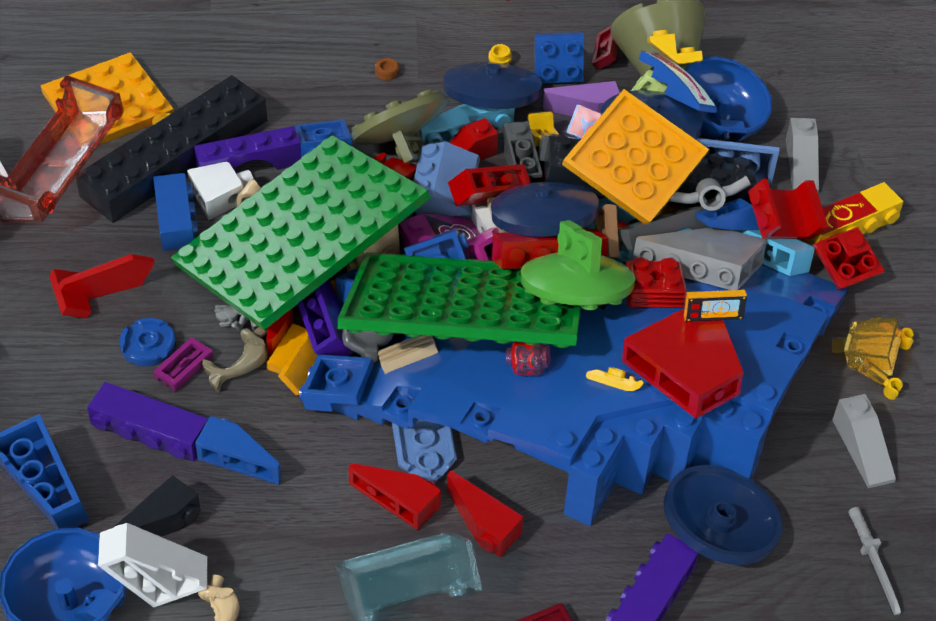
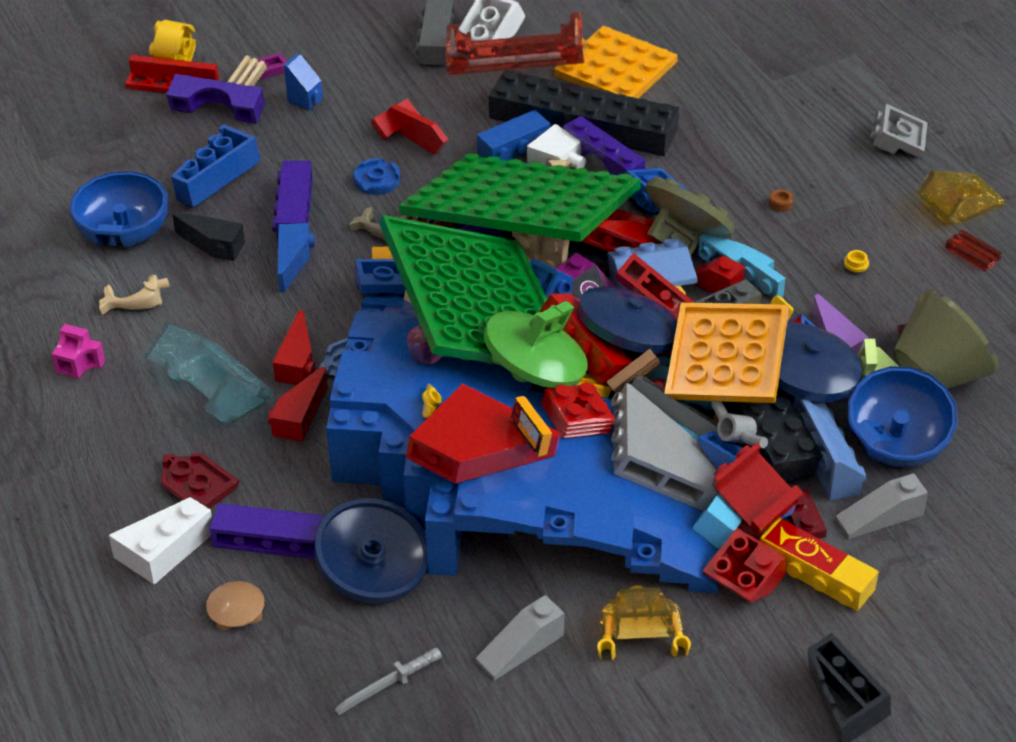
camera: 70 degrees right, 5 degrees down
(151, 565) = (146, 232): white wedge -> none
(187, 367) = (359, 199): magenta tile -> none
(492, 85) = (799, 262): dark blue dish -> none
(559, 57) = (874, 292): blue plate -> none
(666, 45) = (903, 338): yellow slope -> none
(679, 83) = (865, 359): blue slope -> none

